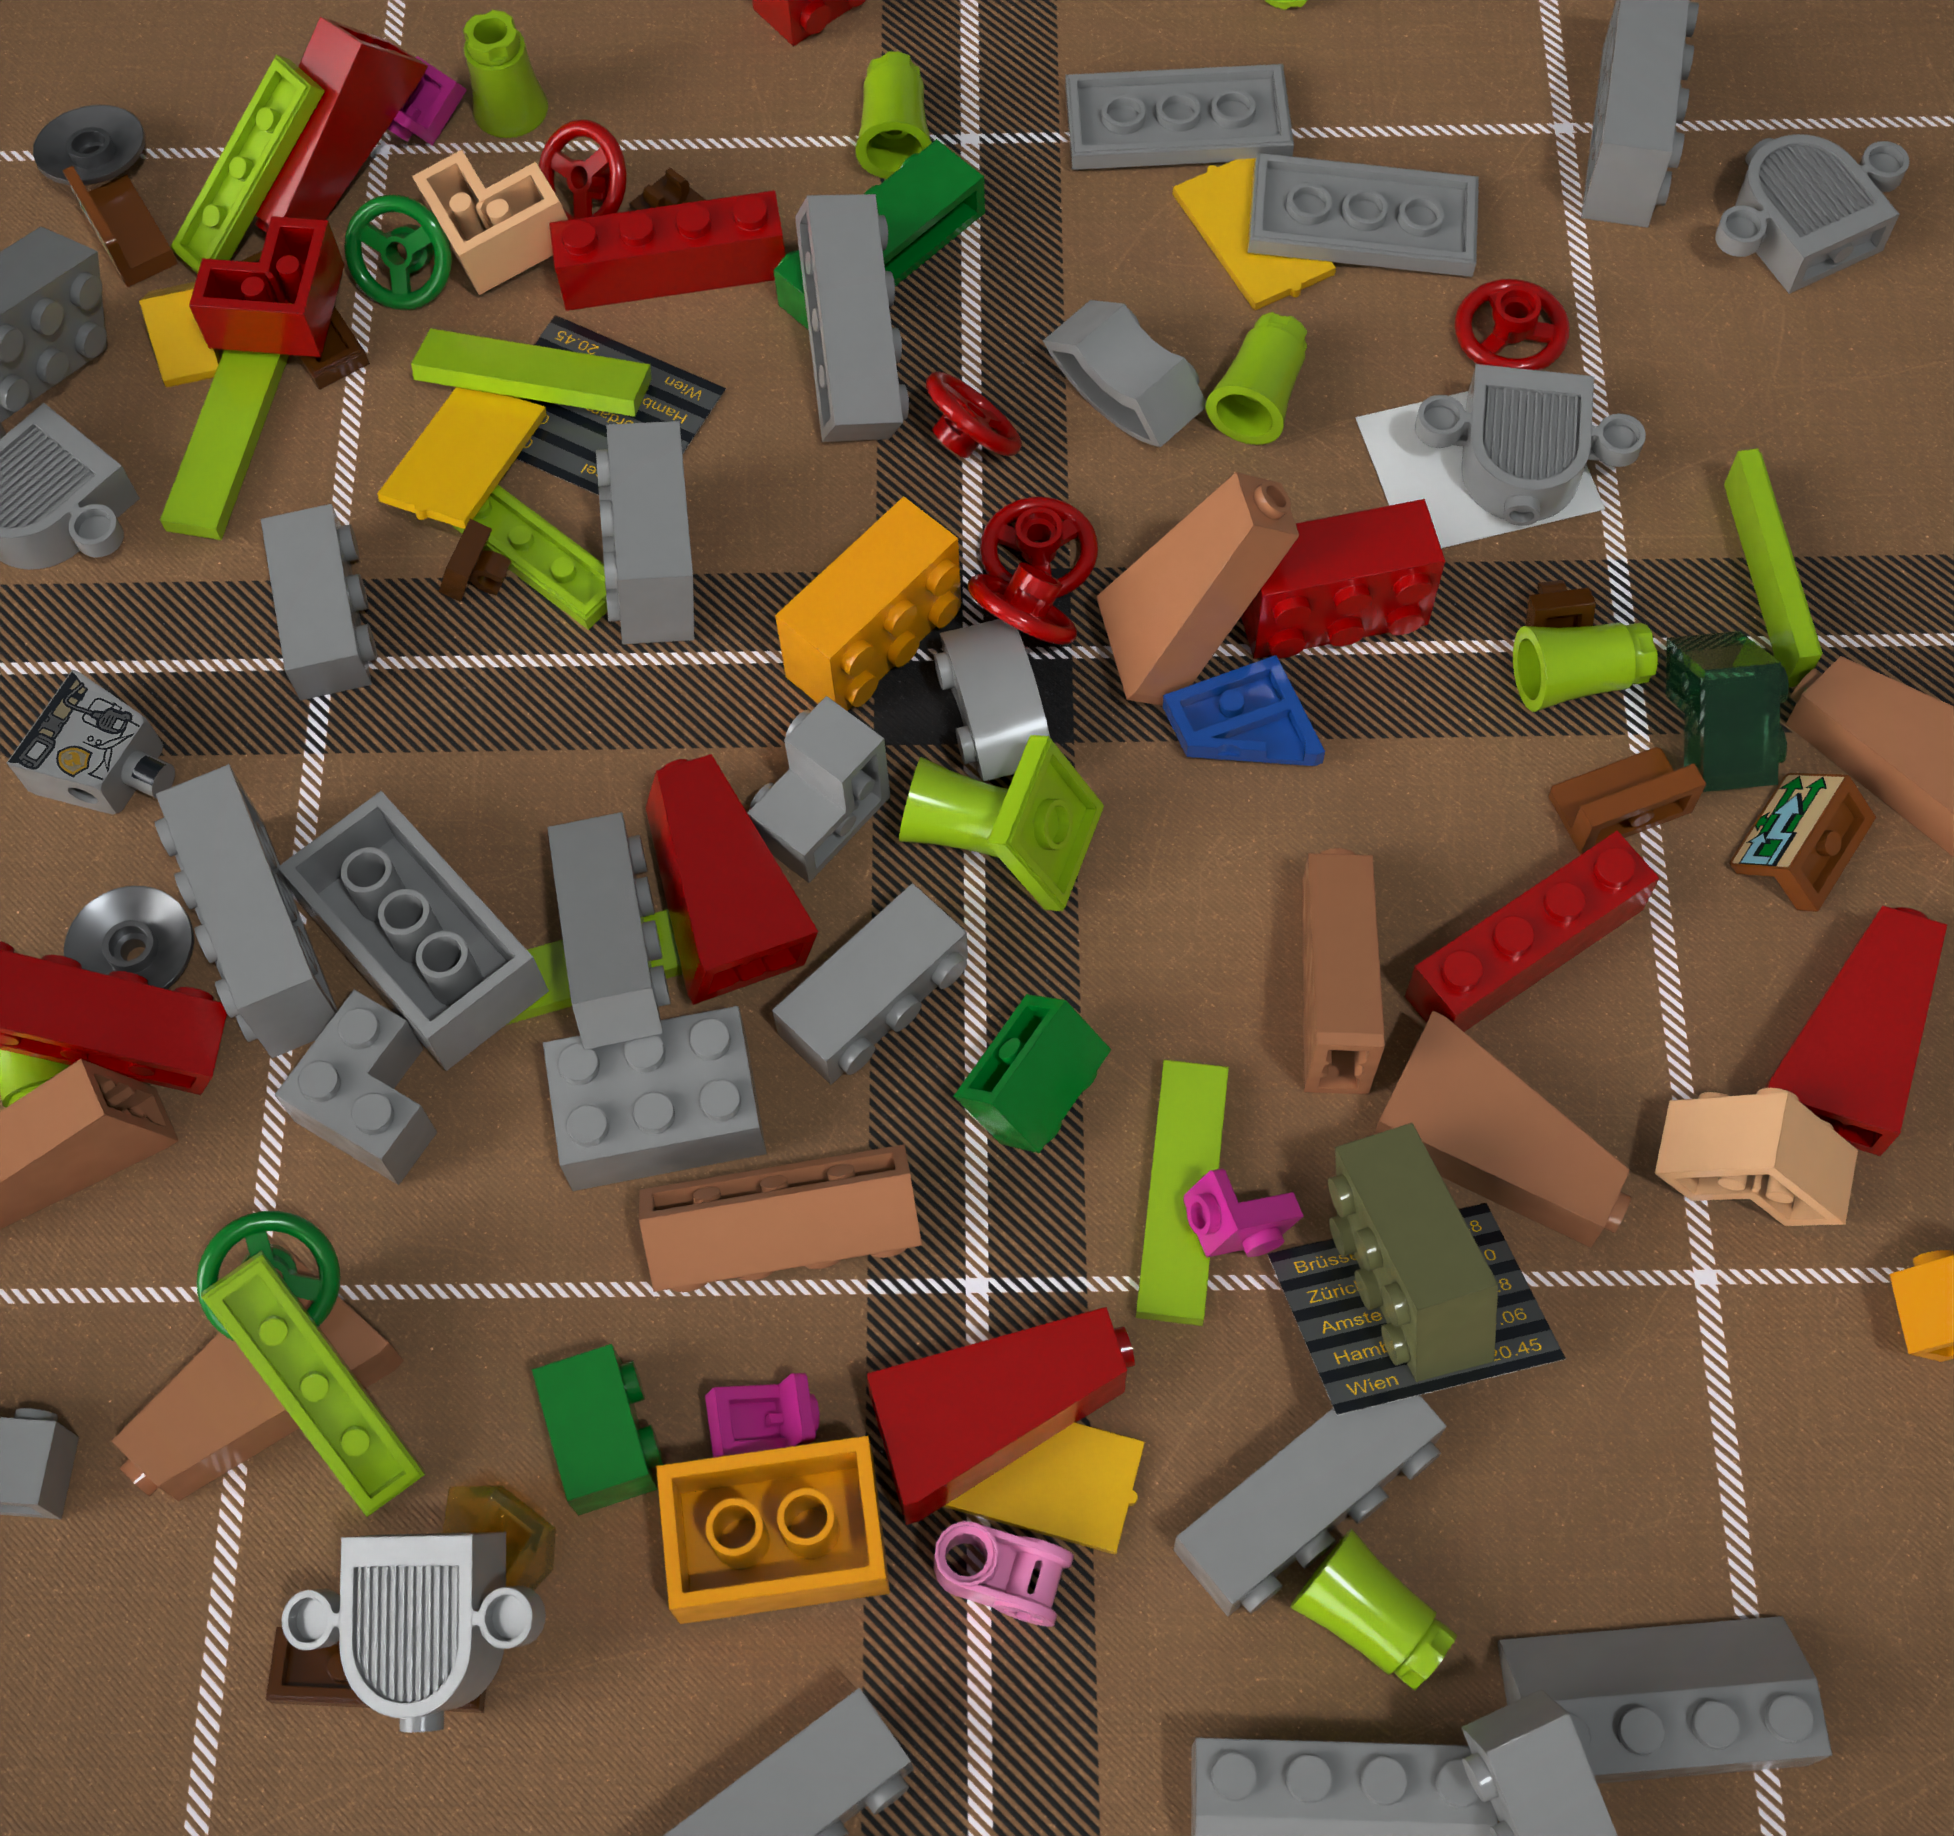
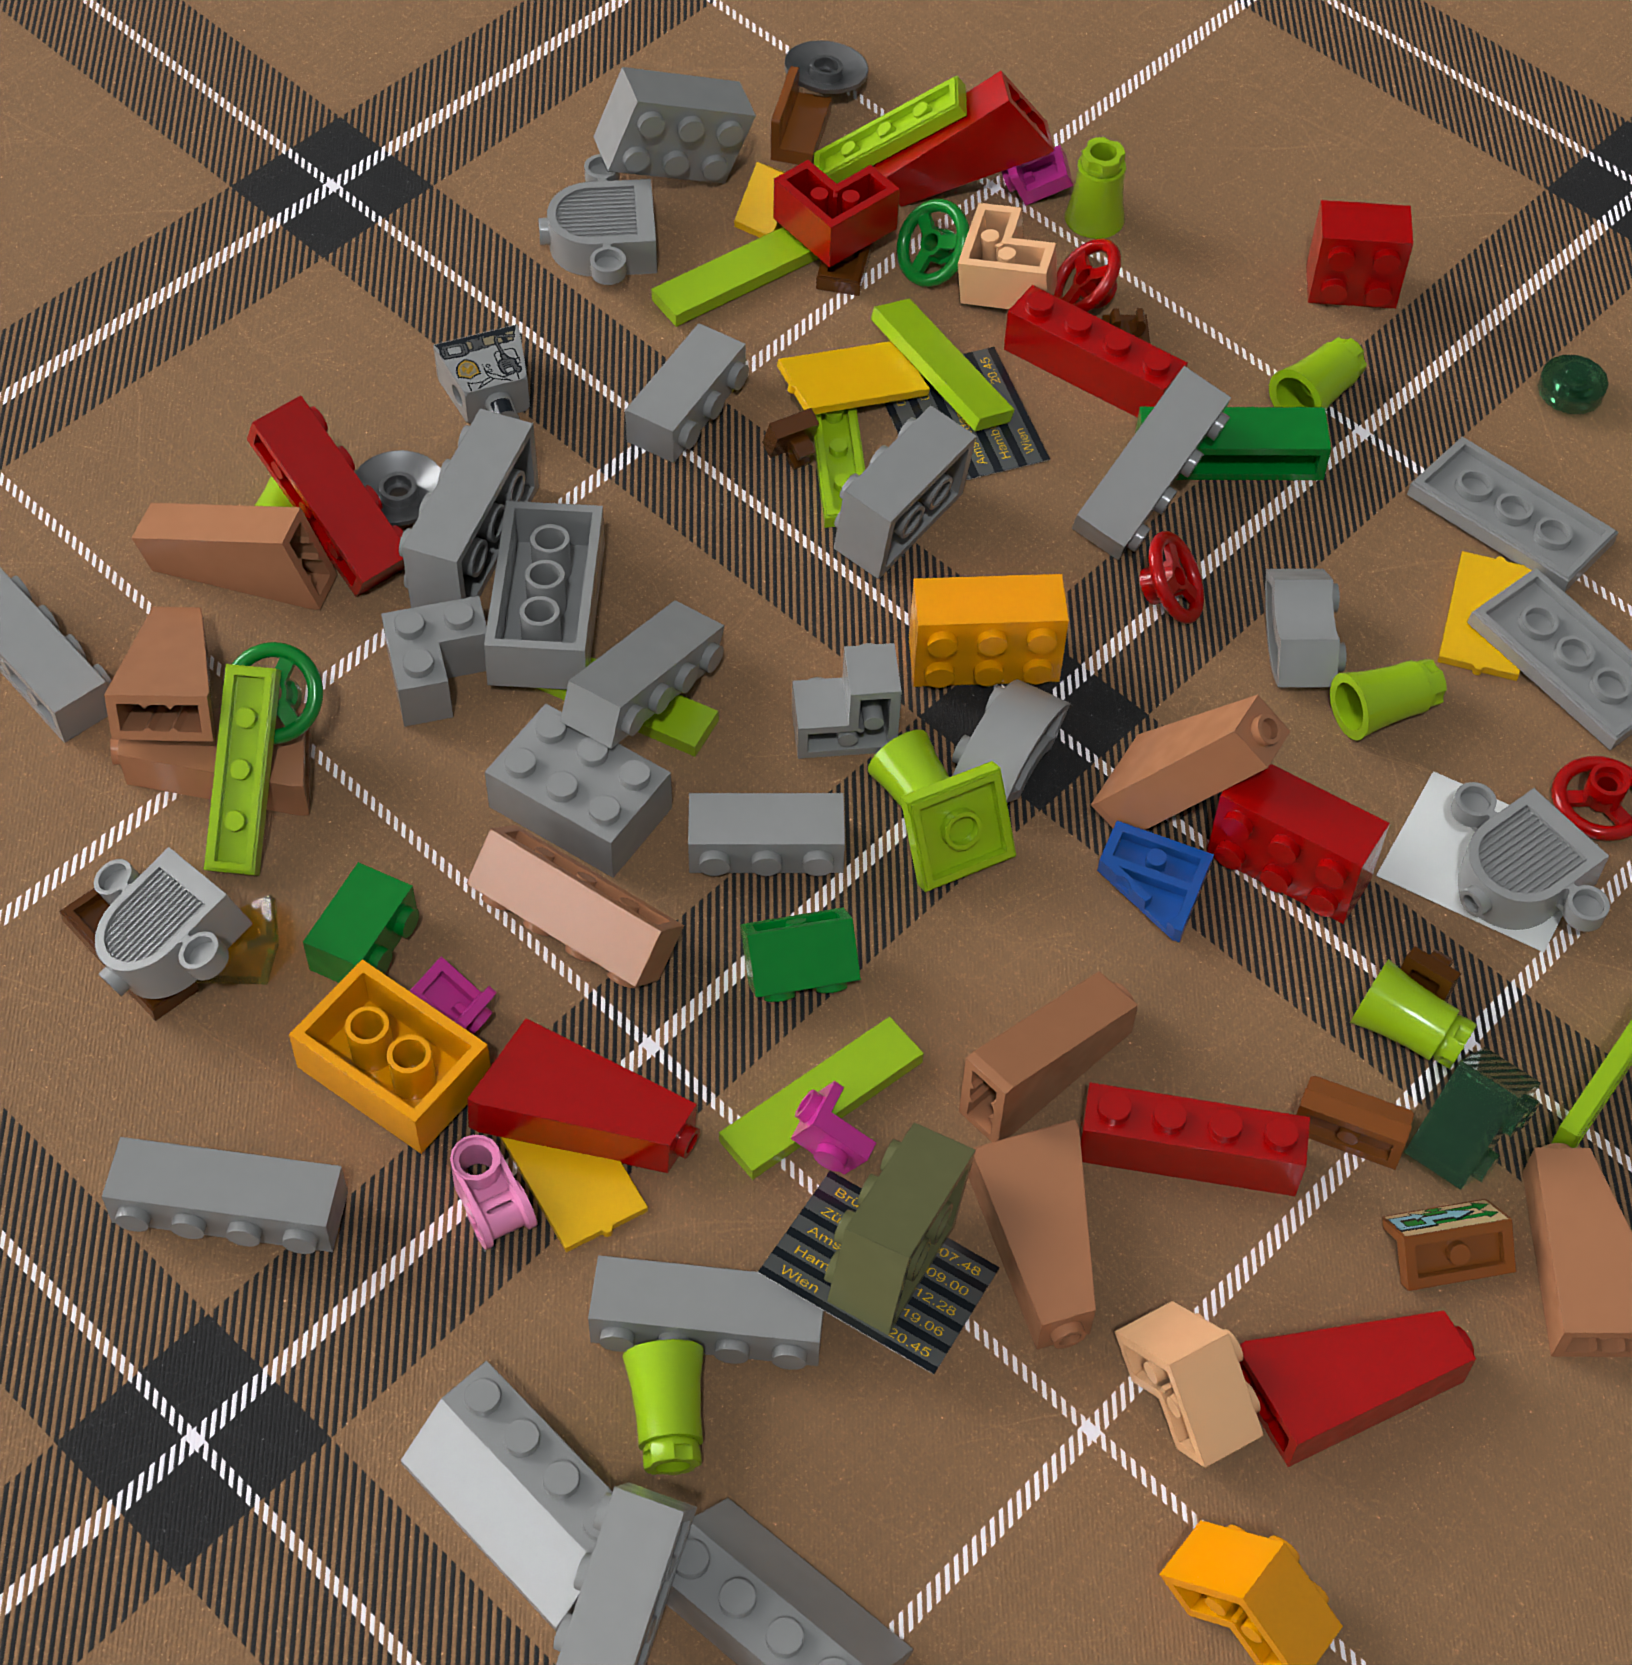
camera: 40 degrees right, 10 degrees down
(130, 1363) = (164, 681): none -> nougat slope
(721, 884) = (736, 715): red slope -> none
(1025, 603) = (1083, 699): red piece -> none
(1040, 520) = (1142, 679): red piece -> none

